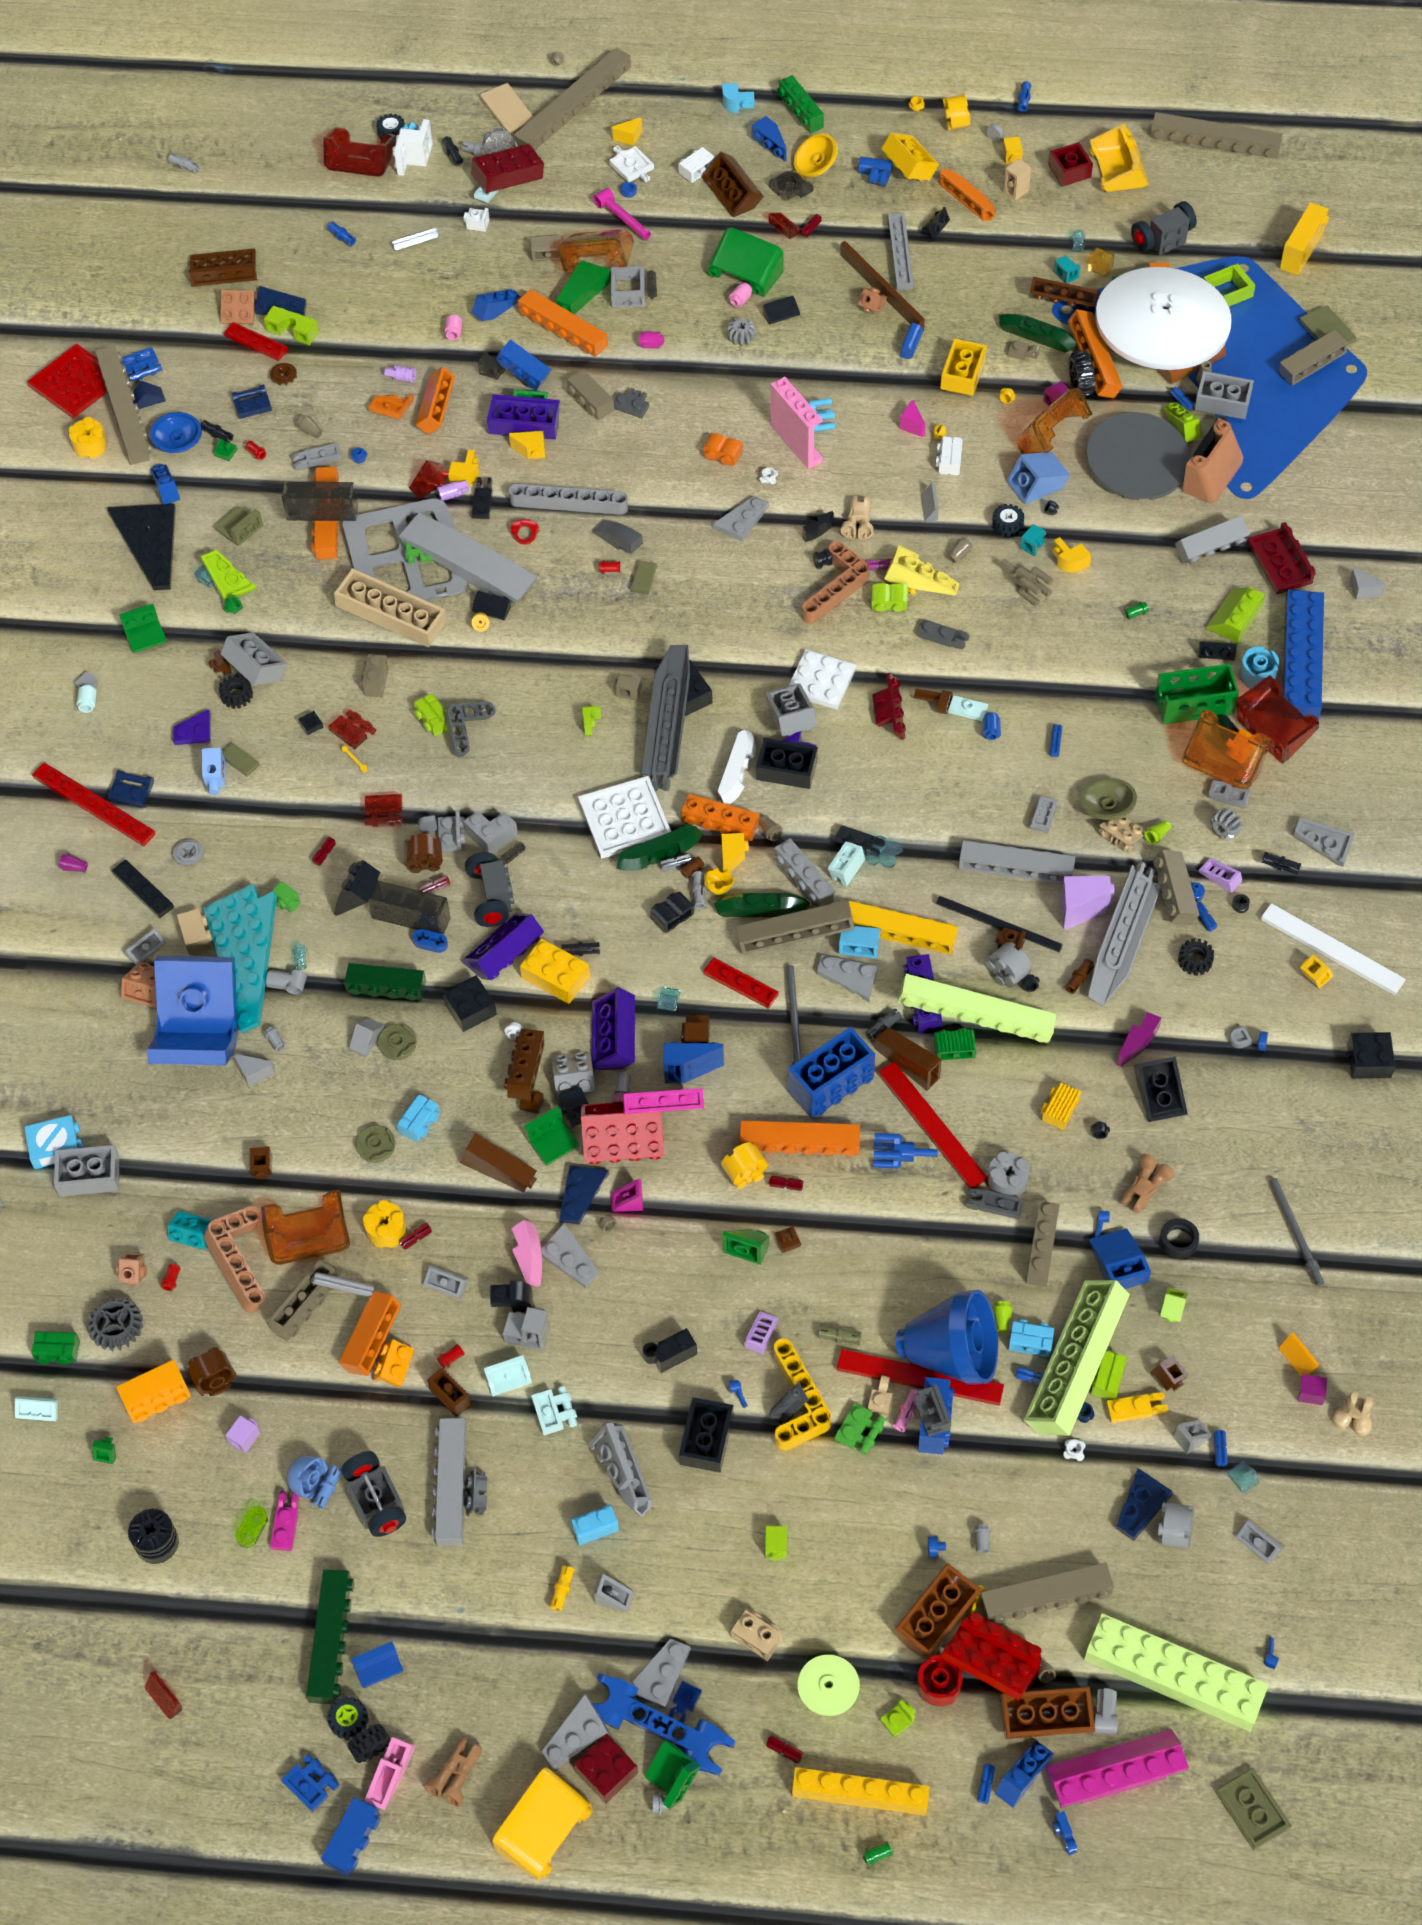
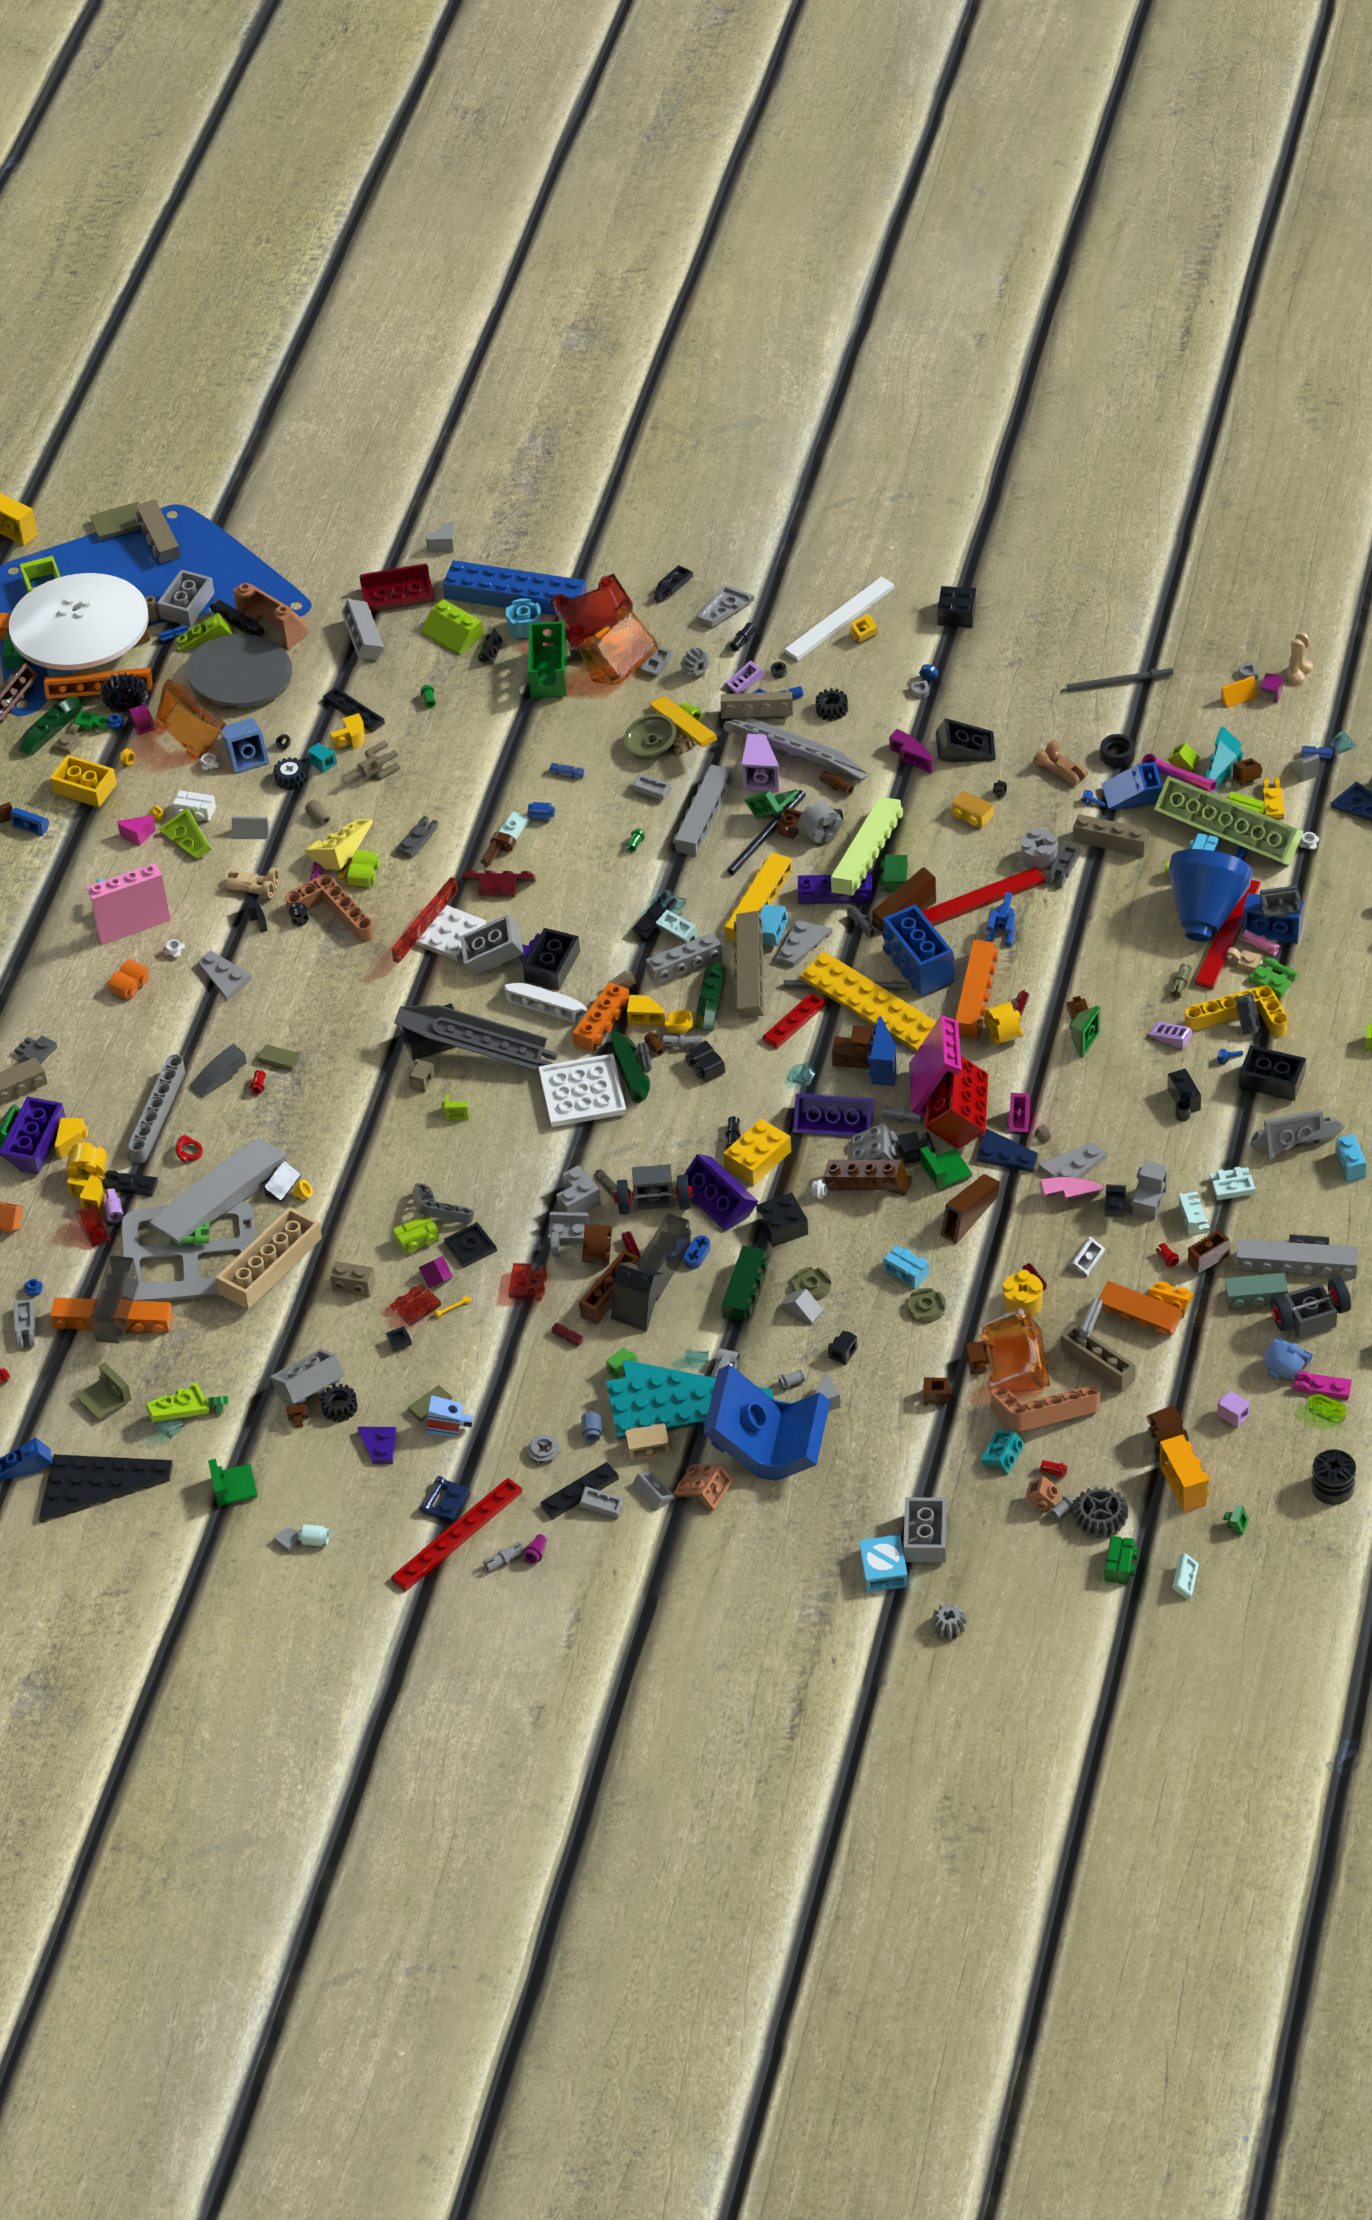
camera: 80 degrees left, 10 degrees down
(65, 841) = (503, 1557): none -> light grey pin
(123, 1290) = (1062, 1507): none -> light grey pin
(125, 906) = (601, 1502): none -> light grey plate
(212, 885) = (591, 1426): none -> sand blue brick
(304, 1193) = (977, 1357): none -> reddish brown brick
(314, 1076) = (843, 1347): none -> black brick
(388, 872) = (599, 1298): none -> reddish brown brick
(390, 737) = (435, 1272): none -> magenta panel
(403, 1445) = (1254, 1290): none -> sand green brick
(428, 760) = (470, 1245): none -> black tile
(490, 458) = (86, 1161): none -> yellow brick
(768, 1044) = (868, 1000): none -> yellow plate
(819, 652) = (424, 920): none -> clear red tile
(912, 457) = (186, 834): none -> lime wing
(967, 811) = (636, 837): none -> green pin
(1012, 456) = (209, 761): none -> white plate
(1025, 920) = (767, 804): none -> green bracket
(1049, 359) = (89, 720): none -> green plate
(1053, 378) = (115, 722): none -> blue plate
(1108, 556) = (350, 707): none -> black tile
(1132, 823) = (684, 721): none -> yellow tile
(1159, 1279) = (1180, 774): none -> dark pink piece
(1186, 1345) = (1226, 753): none -> teal wedge
(1339, 1365) = (1248, 670): none -> light grey tile
(1349, 789) = (672, 583): none -> black hinge

